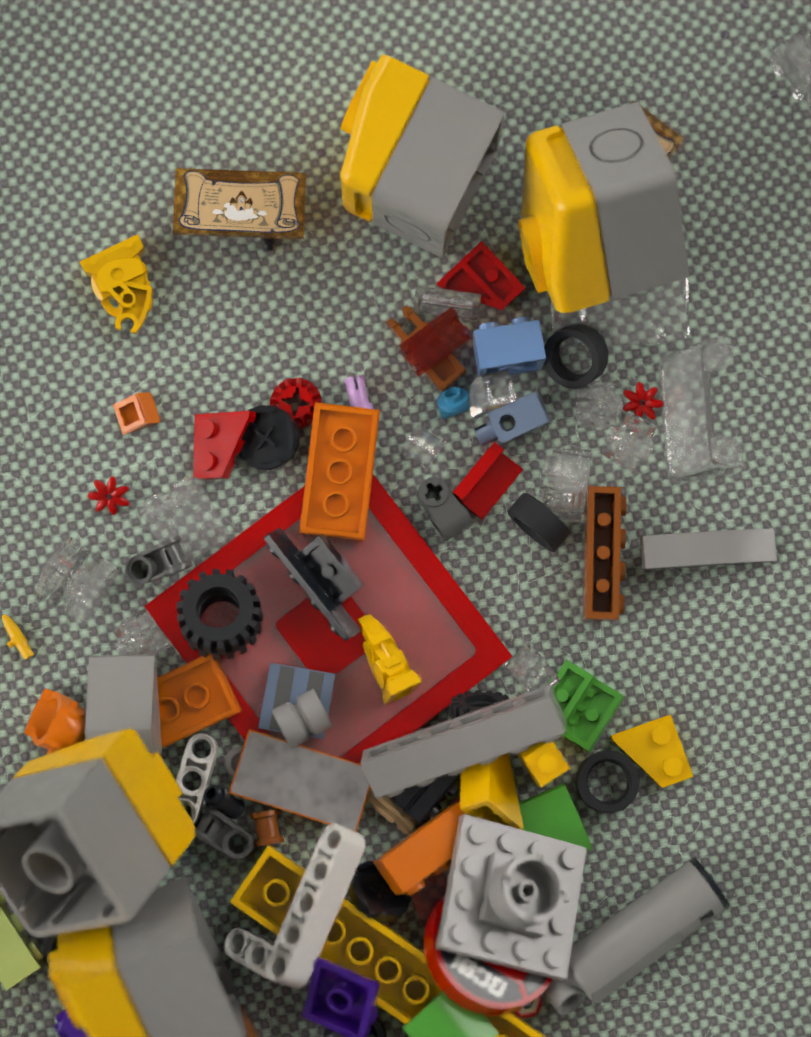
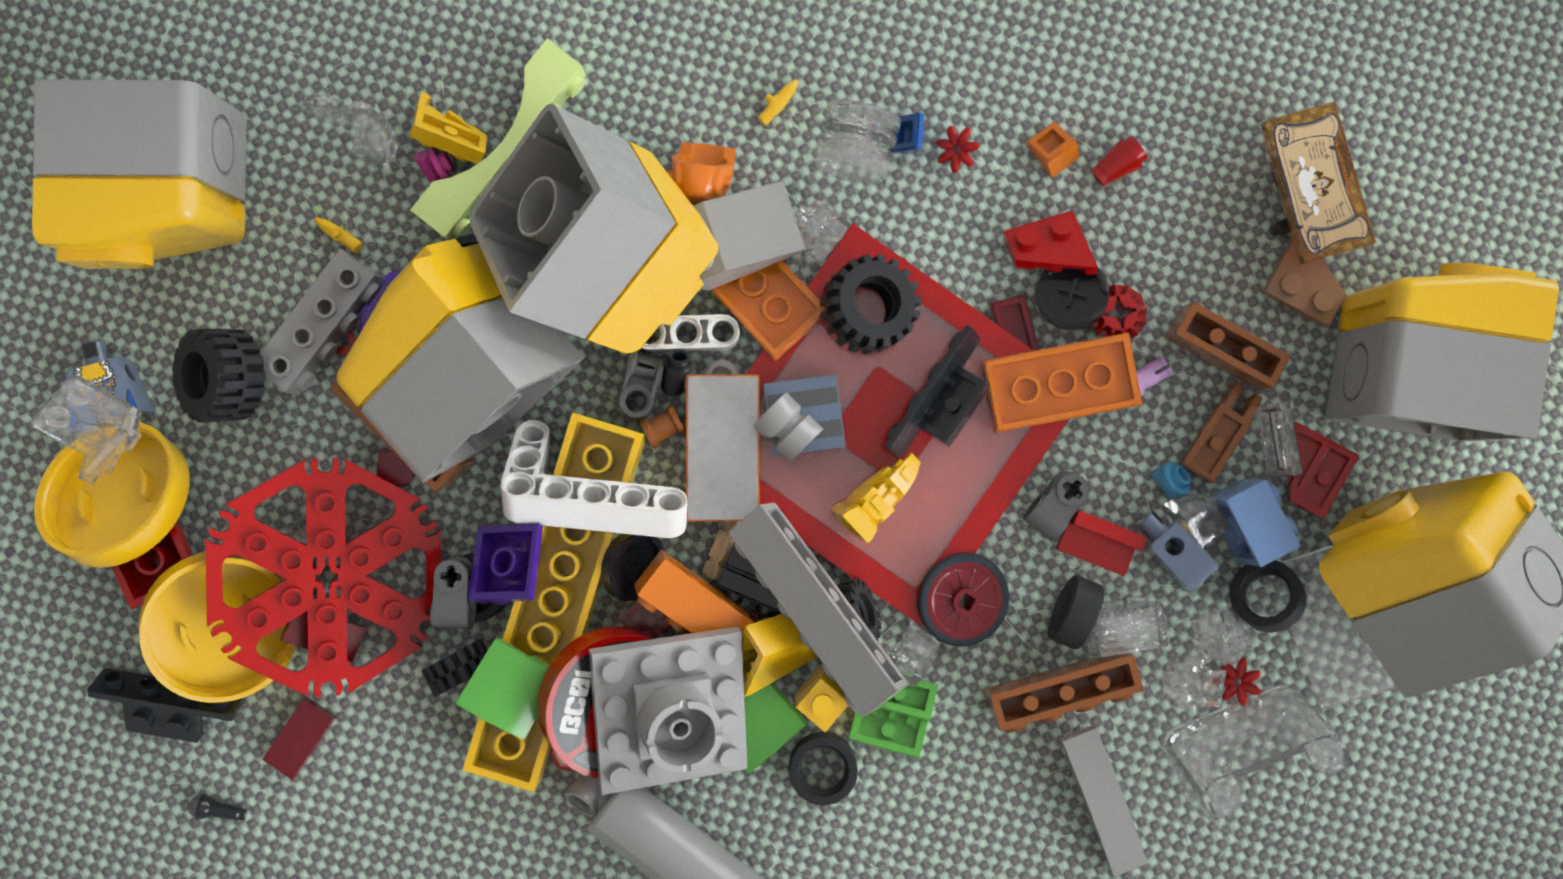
camera: 70 degrees right, 5 degrees up
(82, 531) = (911, 133): none -> blue slope
(122, 277) = (1193, 86): yellow piece -> none
(162, 560) = (908, 226): dark grey piece -> none
(166, 360) = (1120, 161): none -> red cone
(186, 513) = (955, 236): clear bracket -> none
(271, 492) = (1015, 318): none -> dark red tile
(326, 238) = (1305, 288): none -> medium nougat wing
(353, 322) = (1227, 346): none -> dark orange brick
(423, 446) = (1114, 462): clear brick -> none
(434, 342) = (1235, 439): clear red hinge -> none
(485, 628) = (944, 589): none -> dark red wheel
(656, 750) = (872, 809): yellow wing -> none

